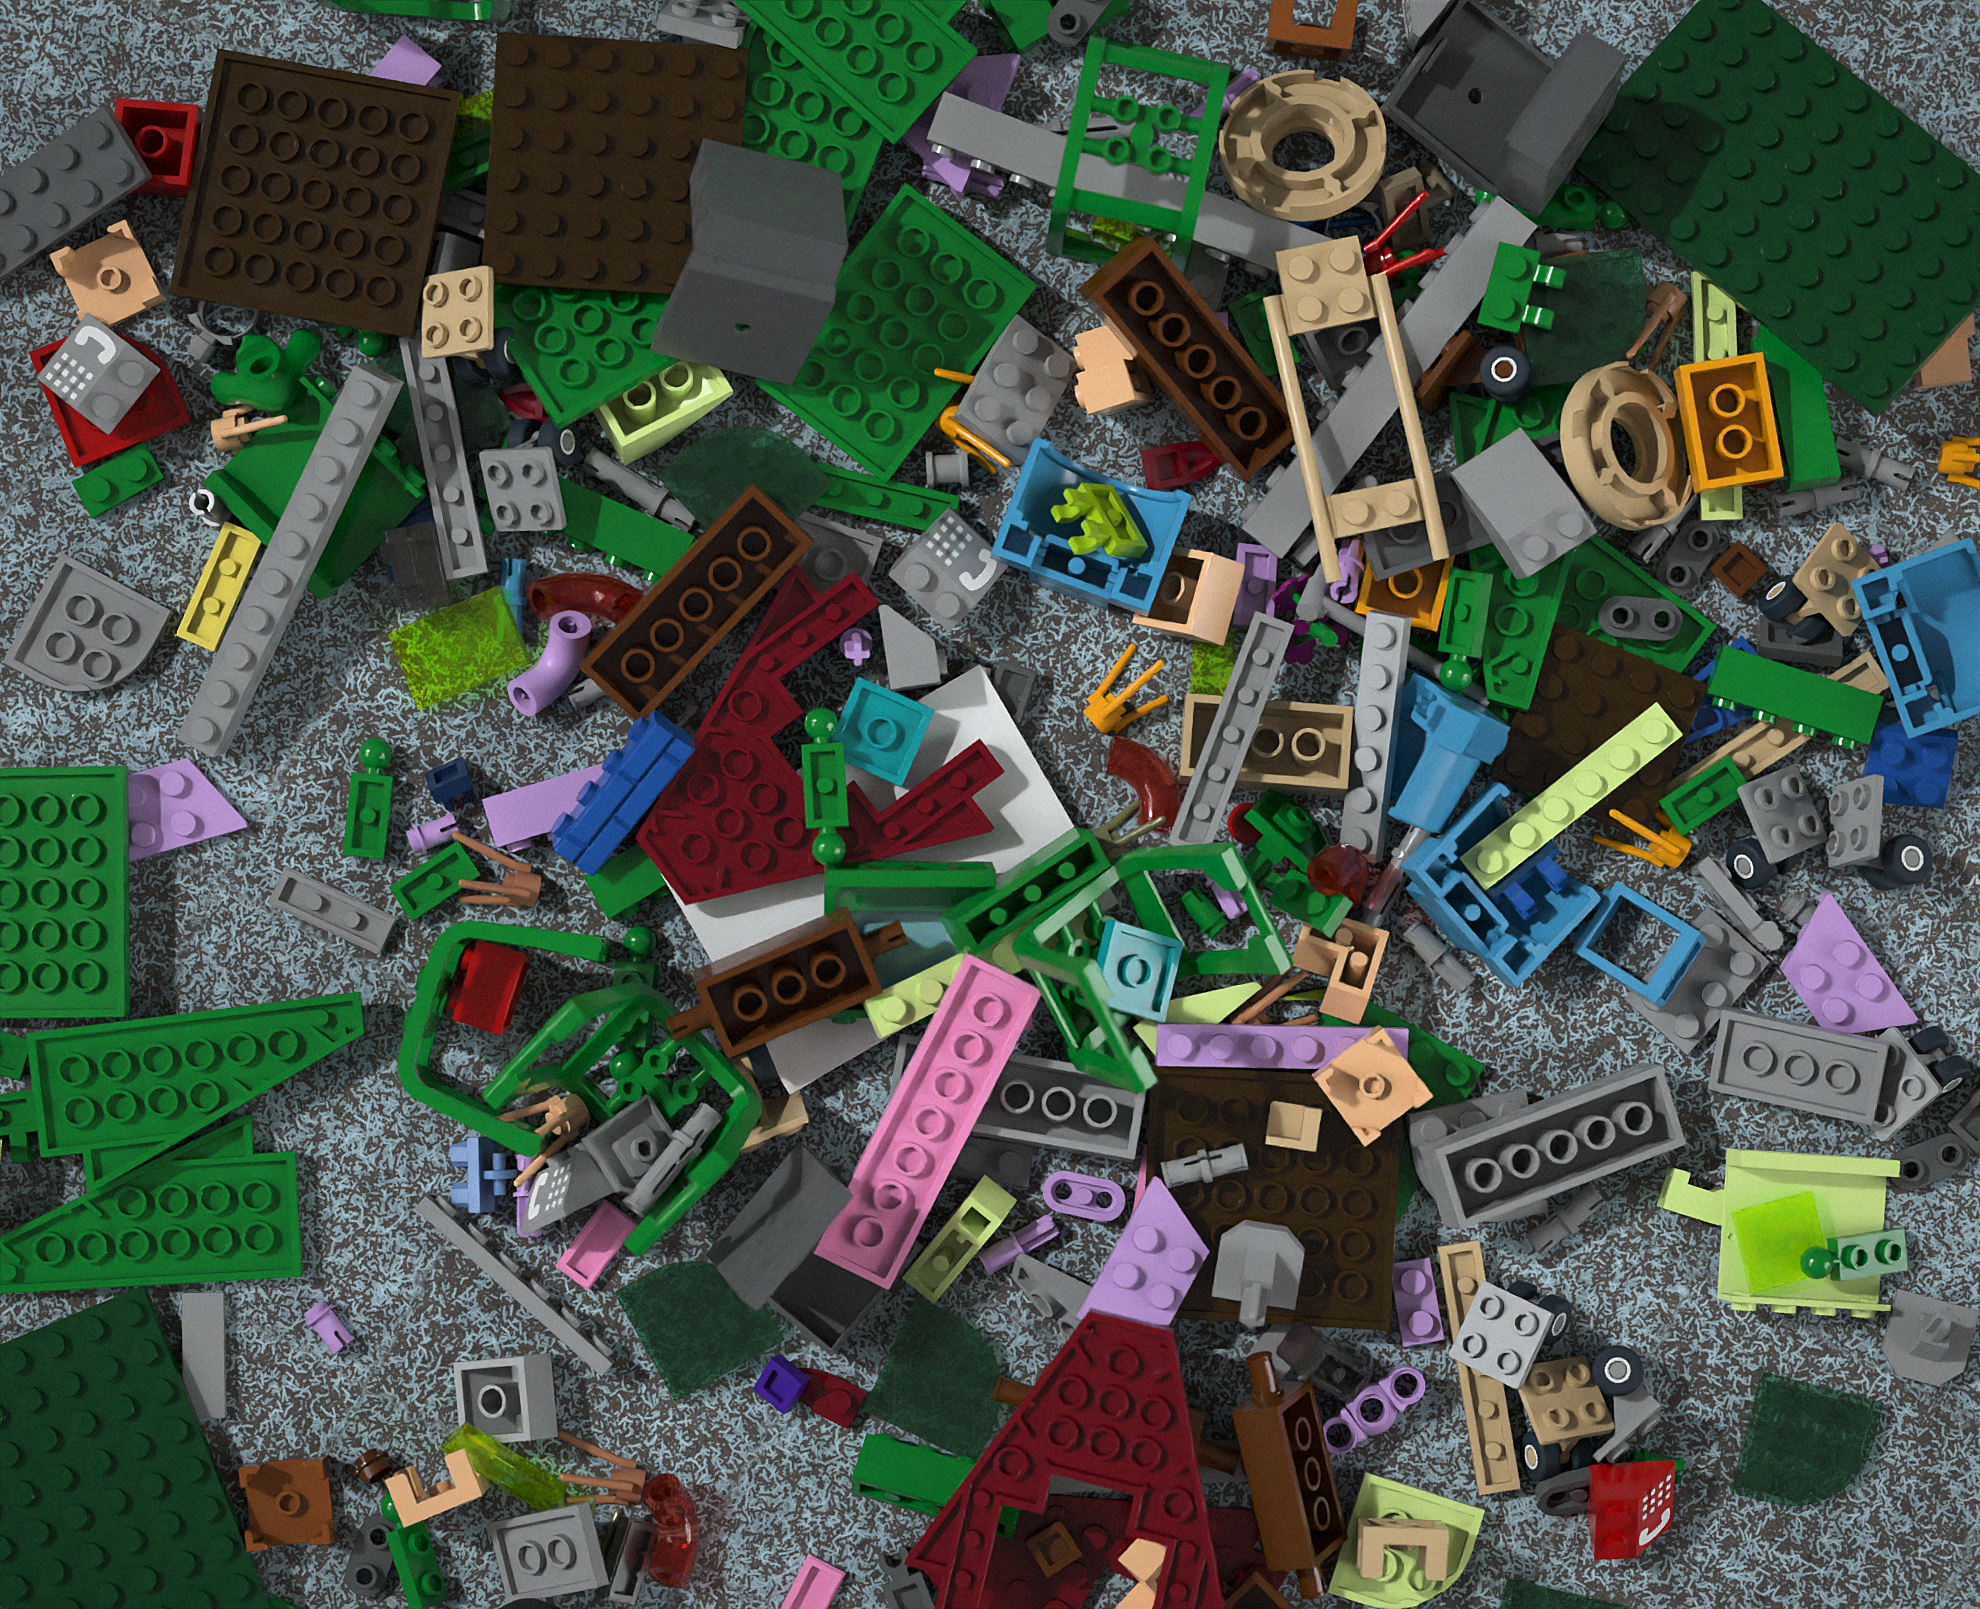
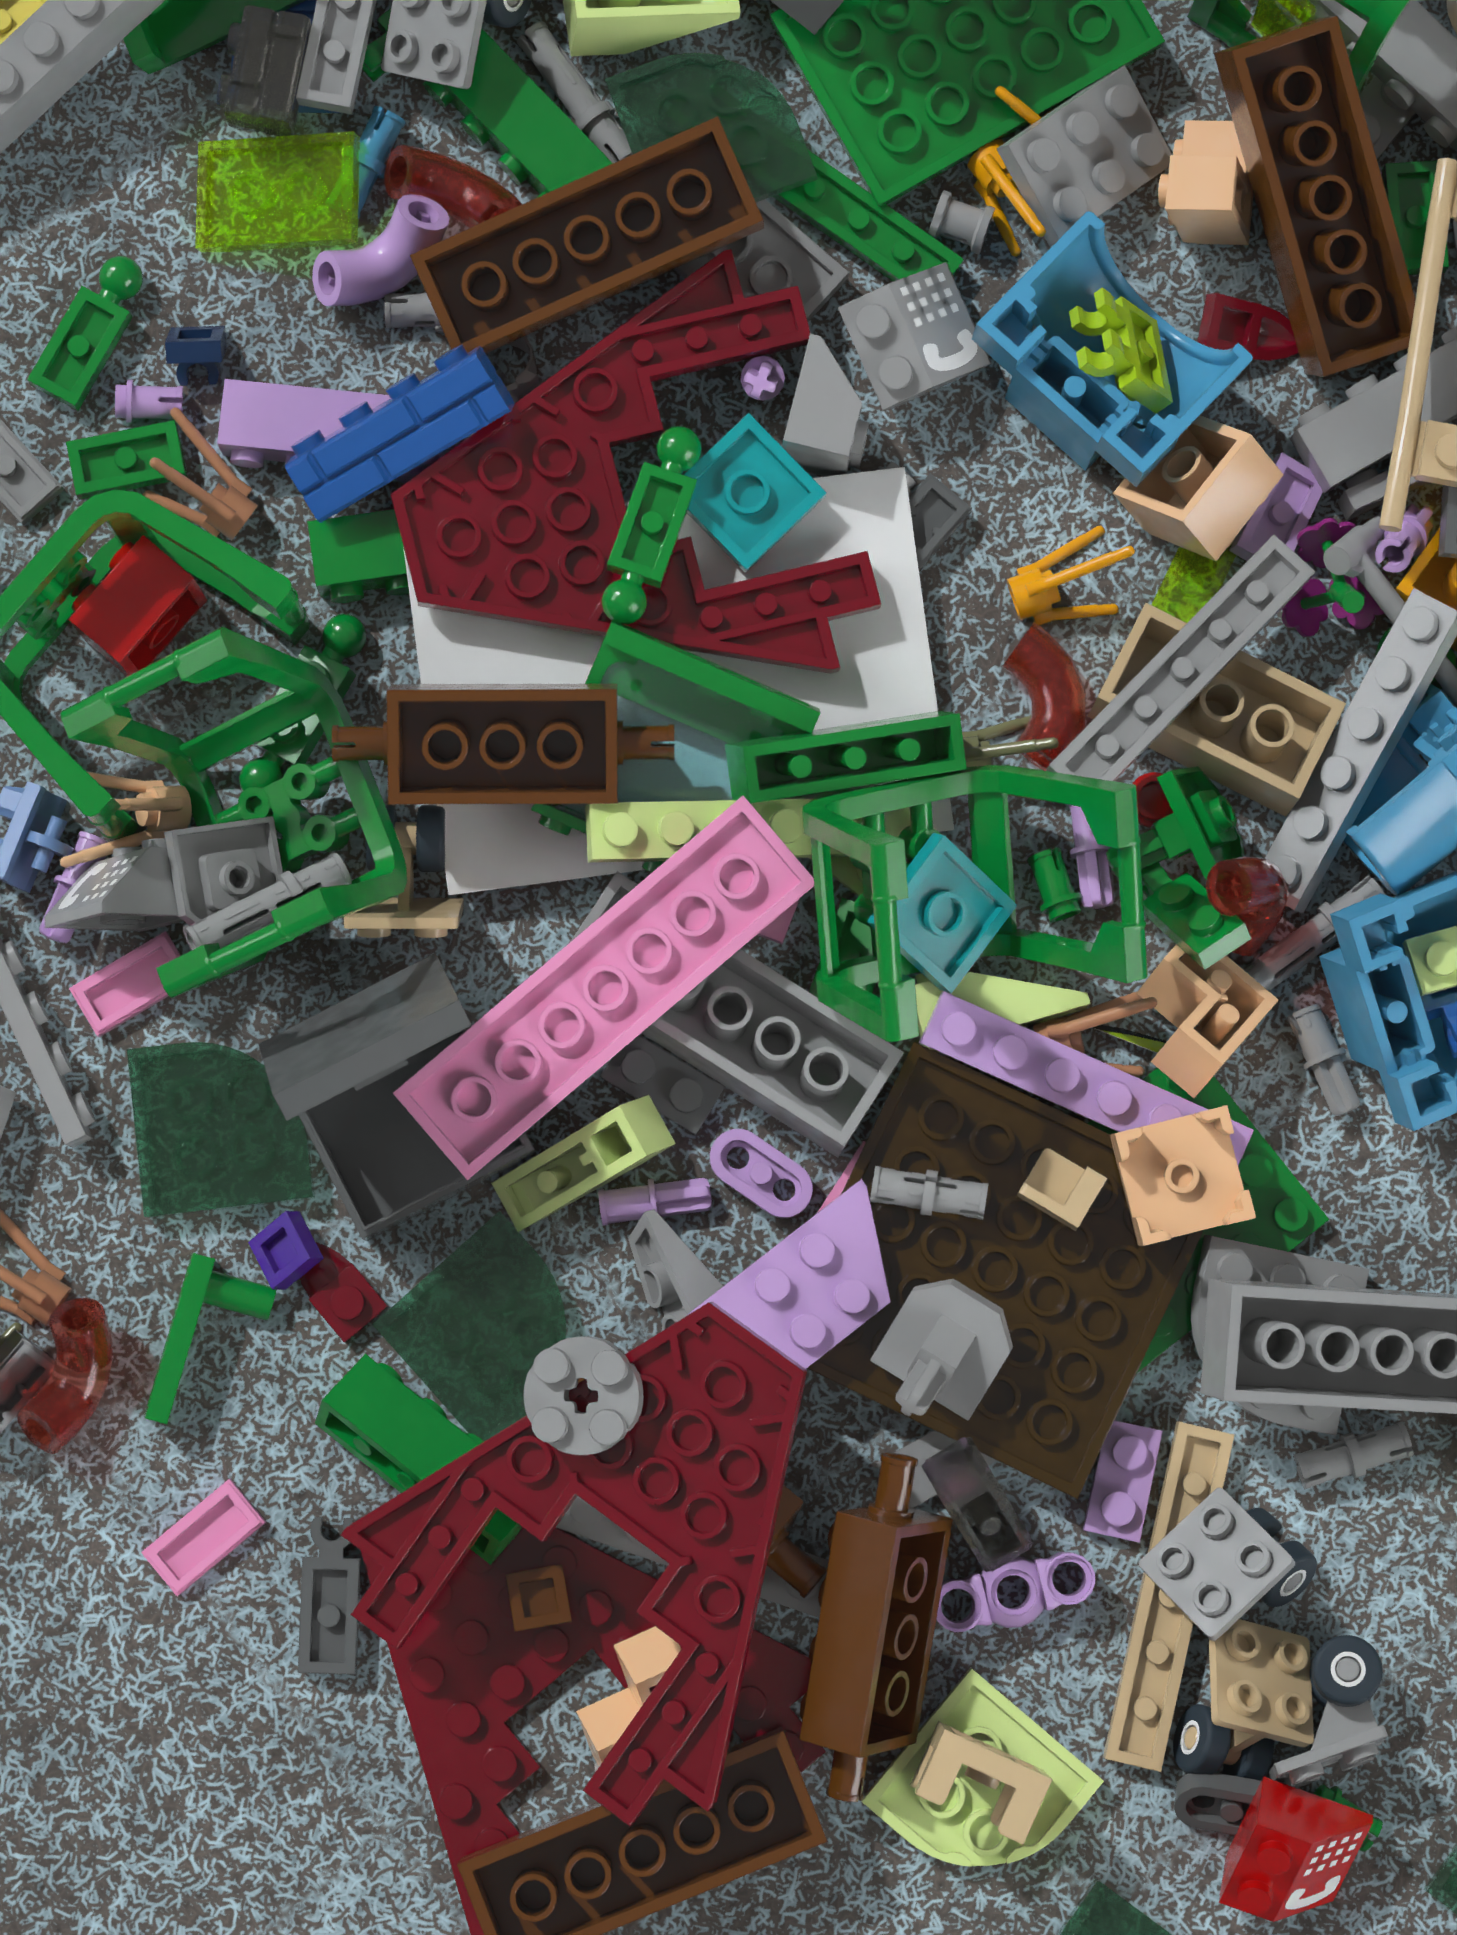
camera: 20 degrees right, 5 degrees down
(733, 1433) = (199, 1287): none -> green piece
(1039, 1385) = (557, 1418): none -> light grey plate

